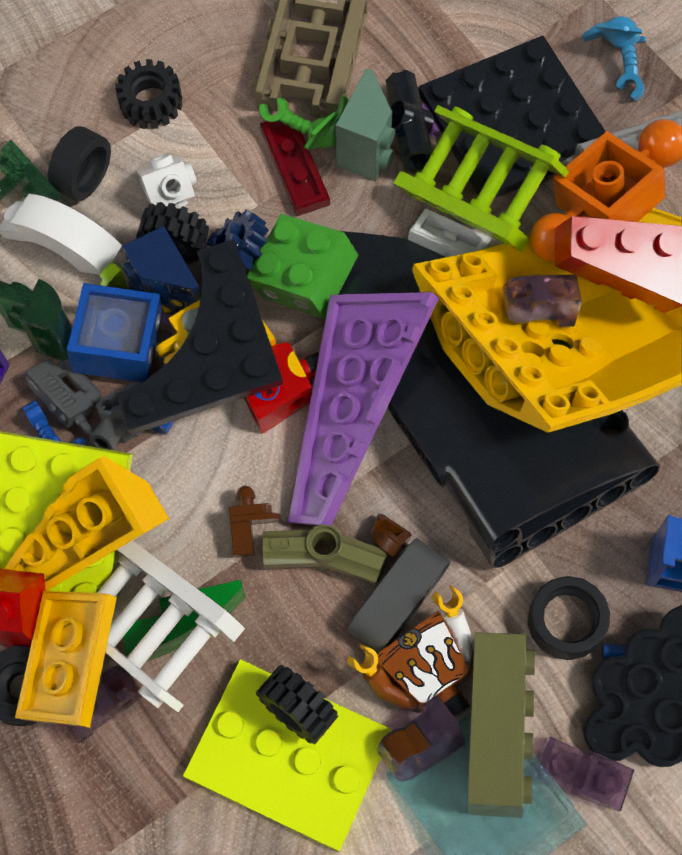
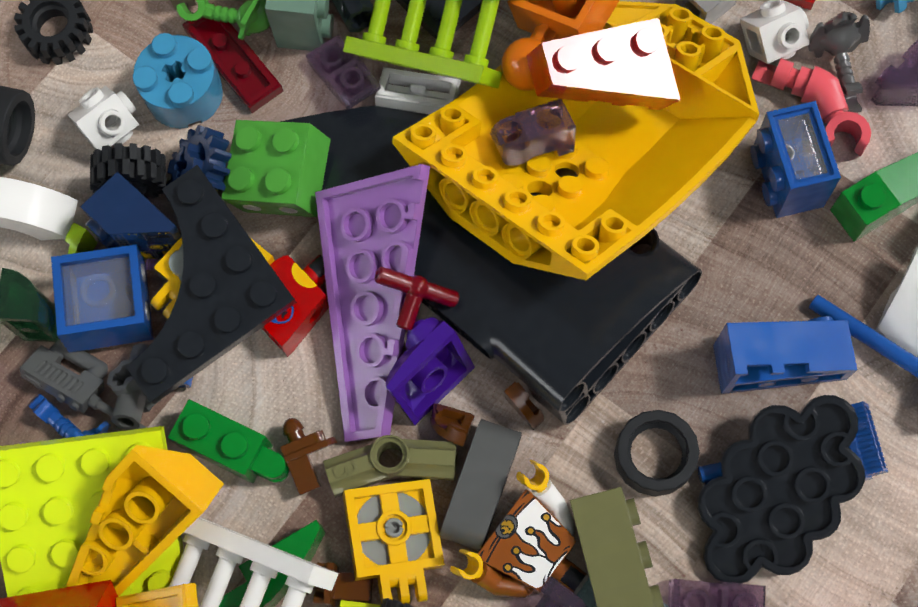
camera: 15 degrees left, 5 degrees up
(184, 491) = (227, 444): none -> green brick
(241, 168) = (178, 80): none -> dark azure brick
(245, 648) = (344, 588): none -> reddish brown piece
(306, 616) = (394, 536): none -> yellow piece
(382, 478) = (428, 368): none -> dark purple slope
(387, 202) = (342, 72): none -> clear purple slope
(393, 402) = (416, 289): none -> dark red piece
(456, 531) = (520, 401): none -> reddish brown tile

